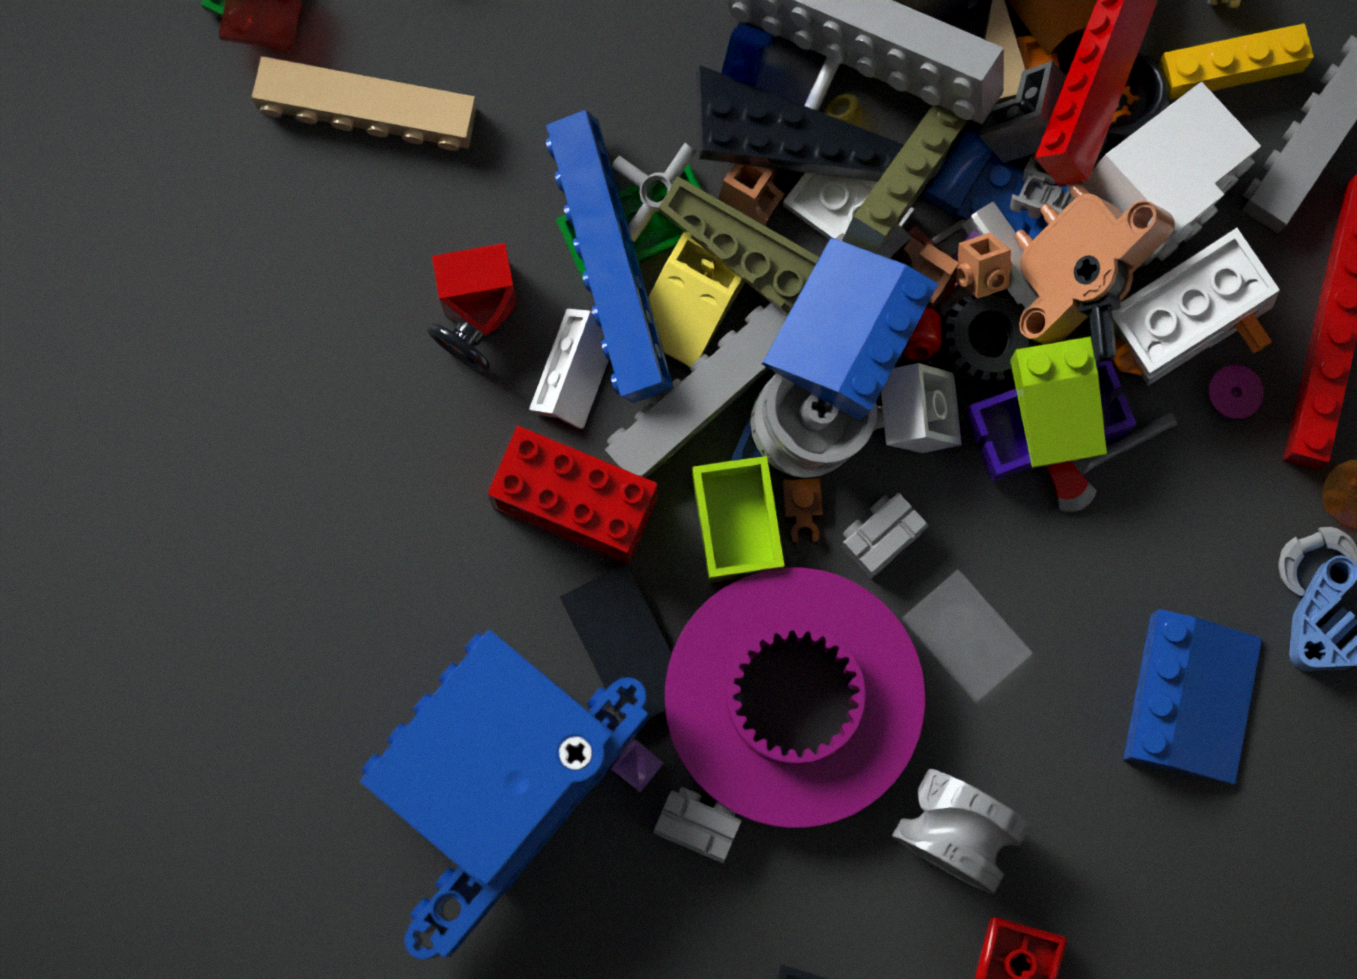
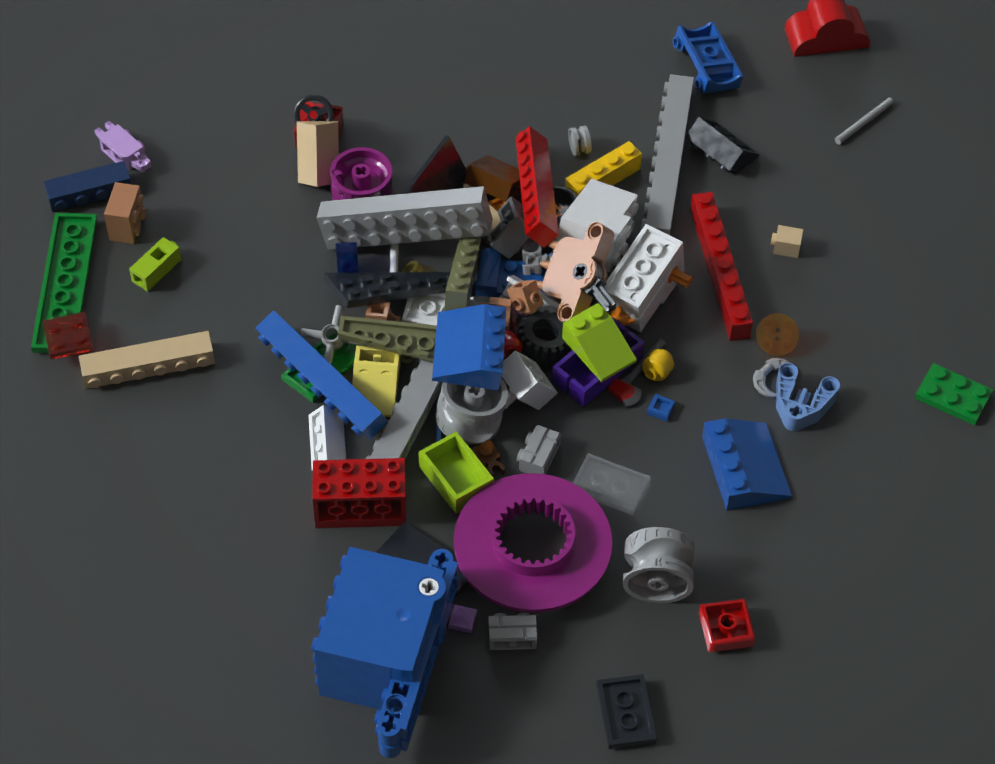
camera: 25 degrees left, 25 degrees down
(476, 294) = (253, 423): red piece -> none
(1112, 536) = (661, 407): none -> blue tile
(1143, 463) = (658, 364): none -> yellow head
(1236, 392) = (687, 317): magenta piece -> none

